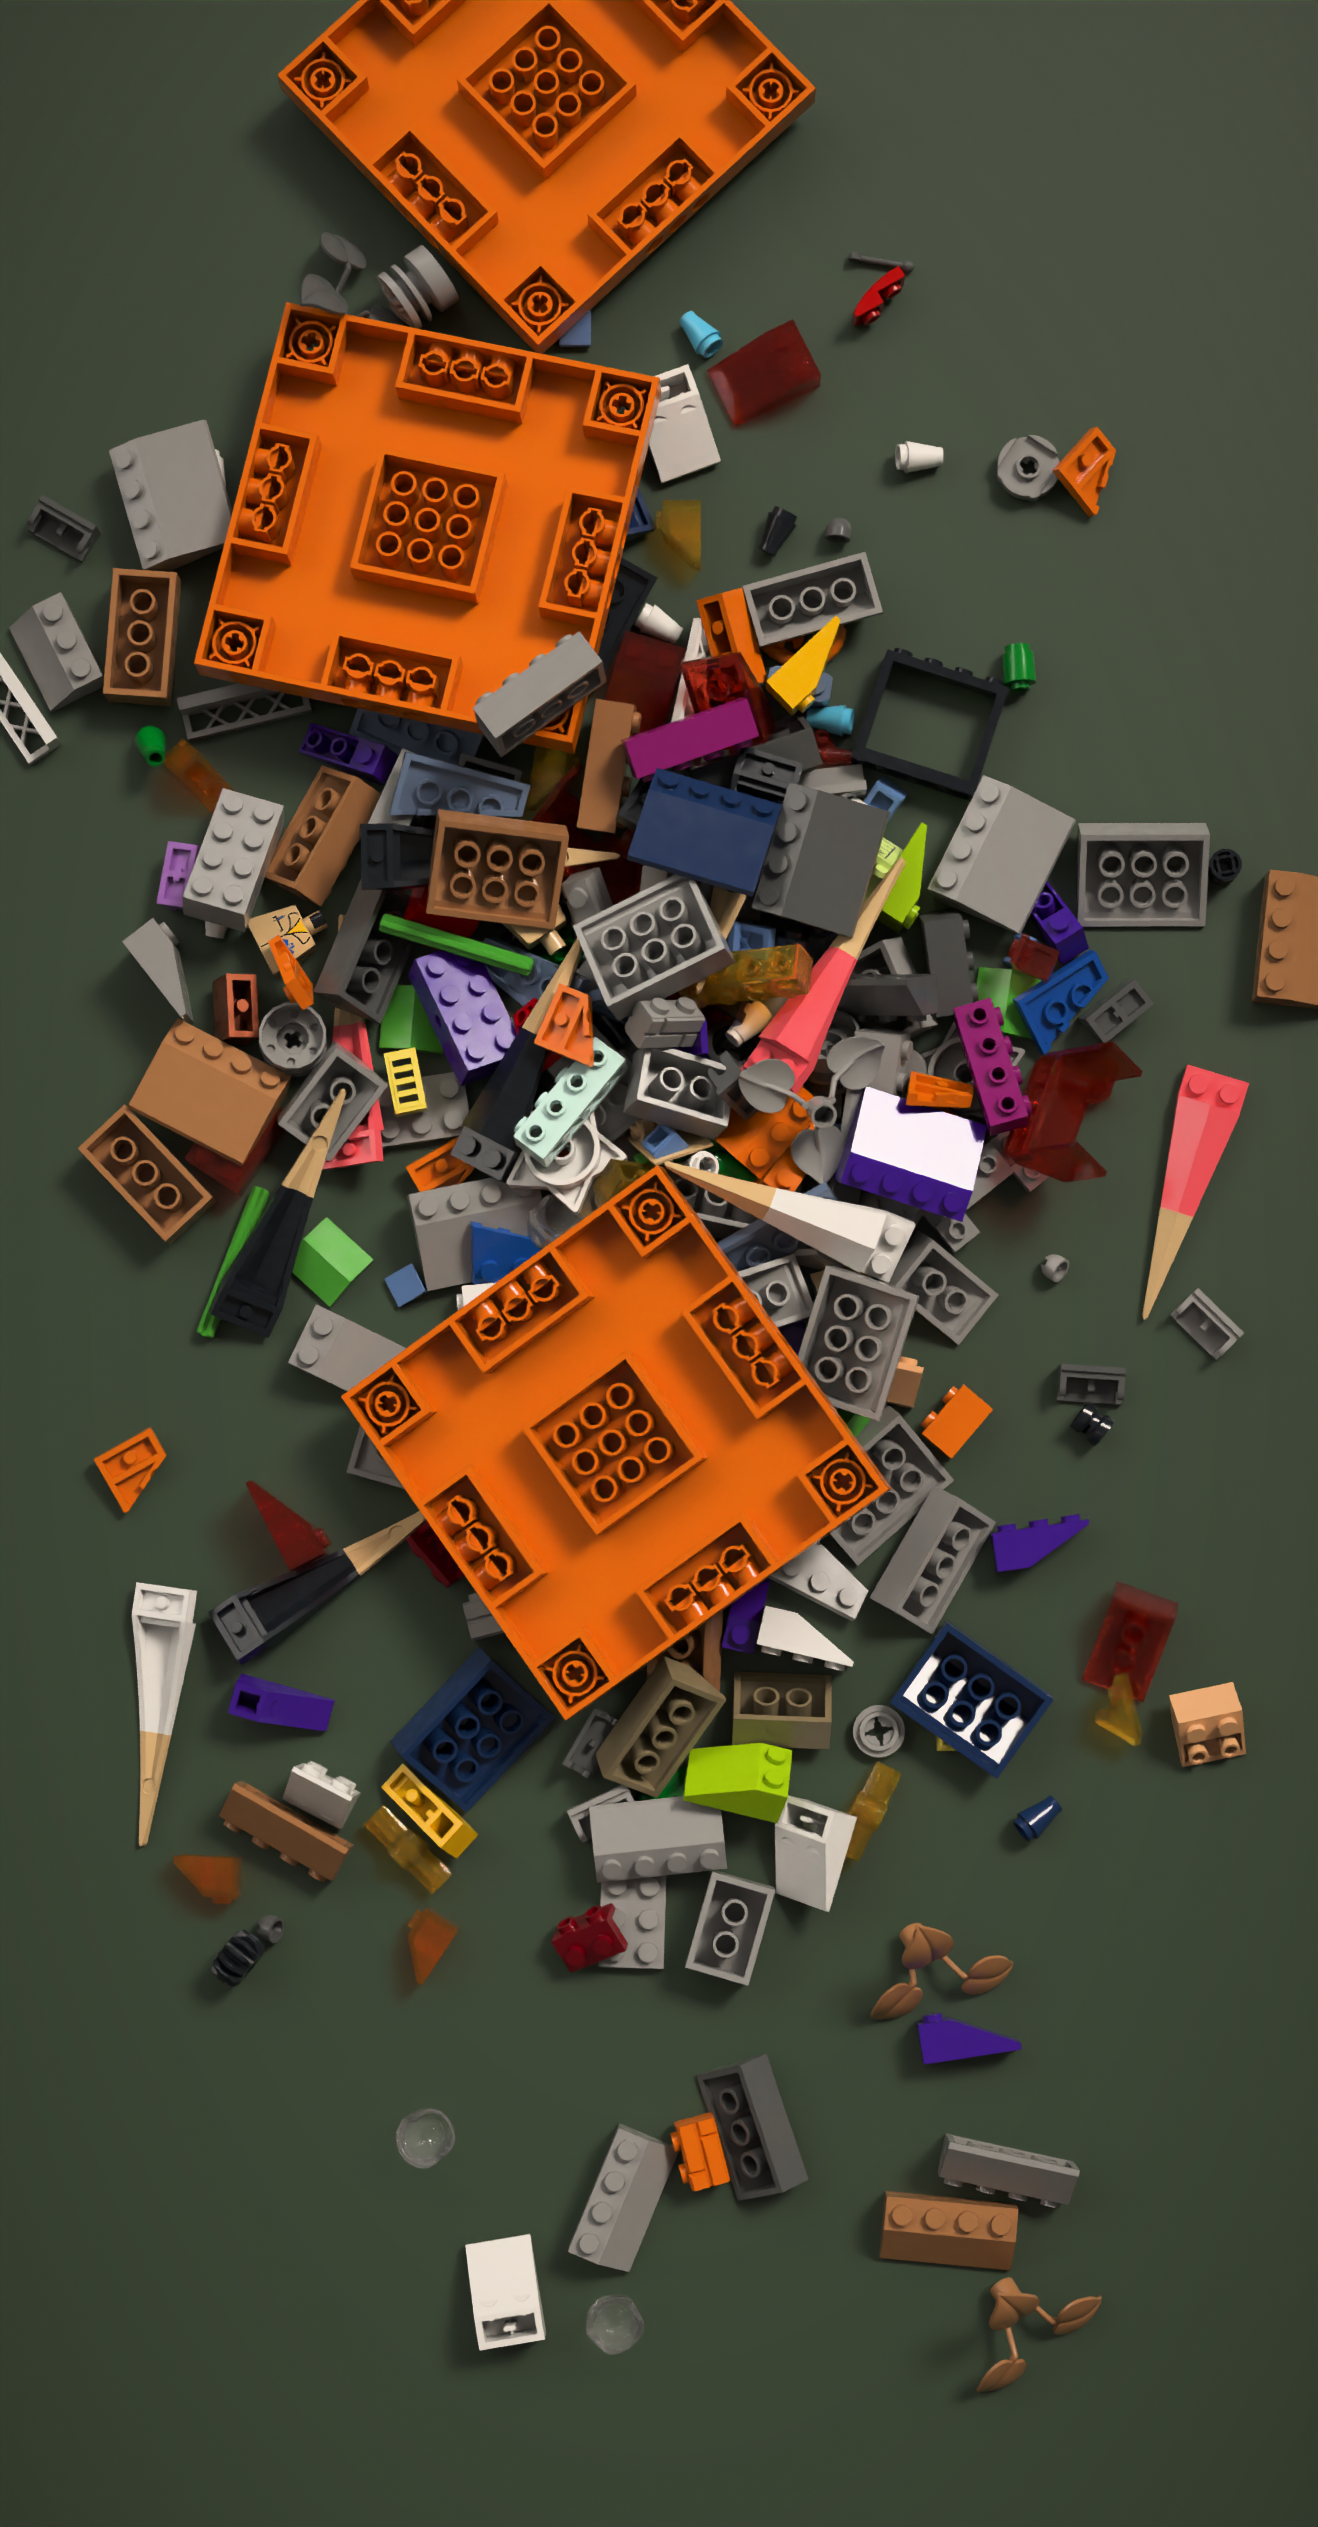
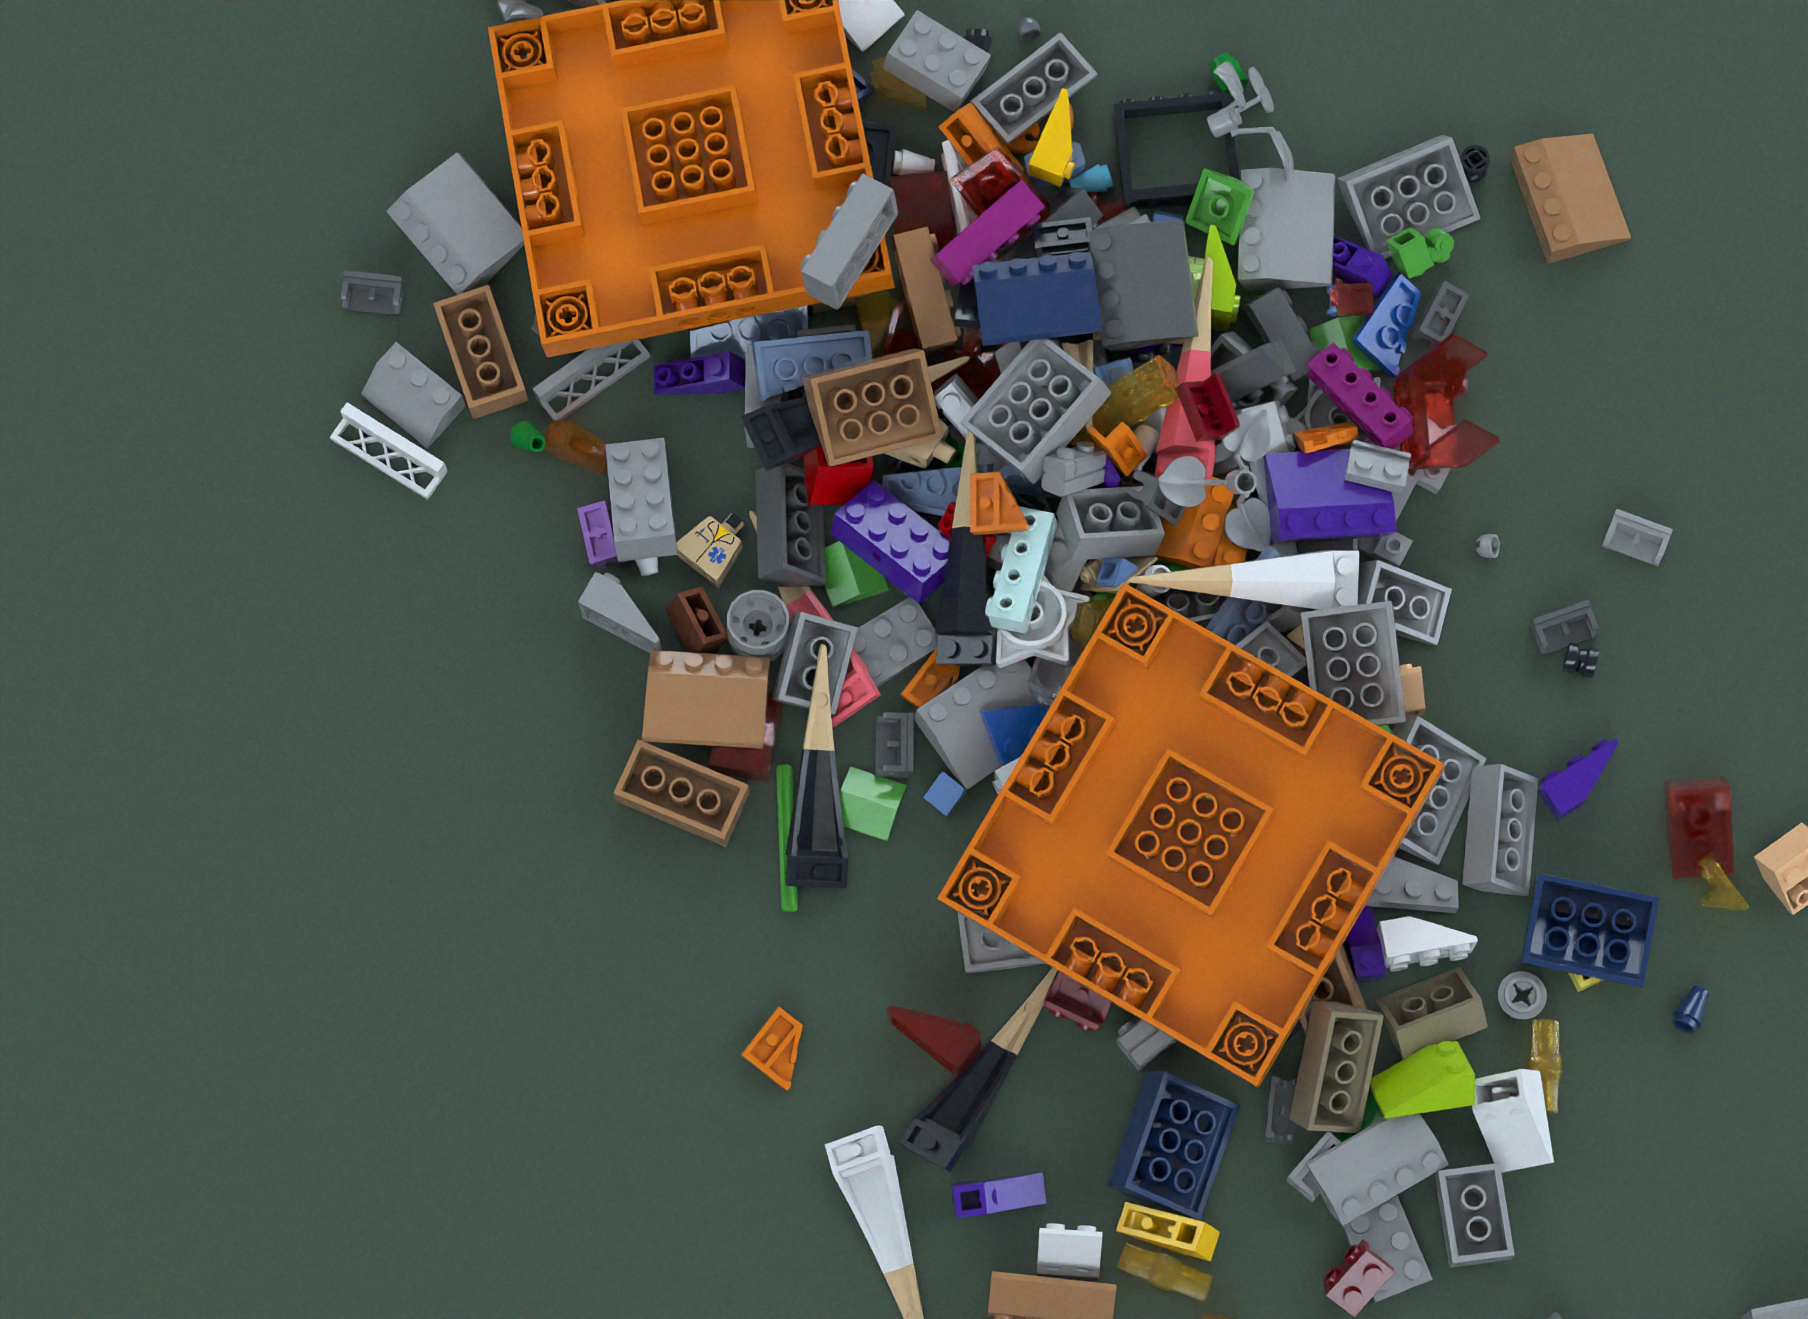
camera: 25 degrees left, 10 degrees down
(297, 983) = (739, 573): orange wing -> none
(322, 835) = (706, 450): medium nougat slope -> none
(340, 1349) = (913, 871): light grey slope -> none
(376, 1215) = (894, 745): none -> dark grey hinge
(409, 1107) = (881, 642): light yellow slope -> none
(456, 944) = (864, 486): bright green axle -> none
(722, 1021) = (1120, 447): none -> orange panel
(725, 529) = (936, 61): none -> light grey brick
(824, 1020) = (1208, 408): none -> dark red bracket
(923, 1947) = (1654, 1146): medium nougat plant -> none
(944, 803) = (1220, 202): none -> bright green slope
(953, 2039) = (1710, 1228): dark purple slope -> none
(955, 1421) = (1465, 707): orange brick -> none
(973, 1147) = (1377, 466): none -> light grey plate
(994, 718) = (1229, 117): none -> light grey plant
(1120, 939) = (1415, 255): none -> bright green brick
(1201, 1127) = (1555, 378): coral plate -> none

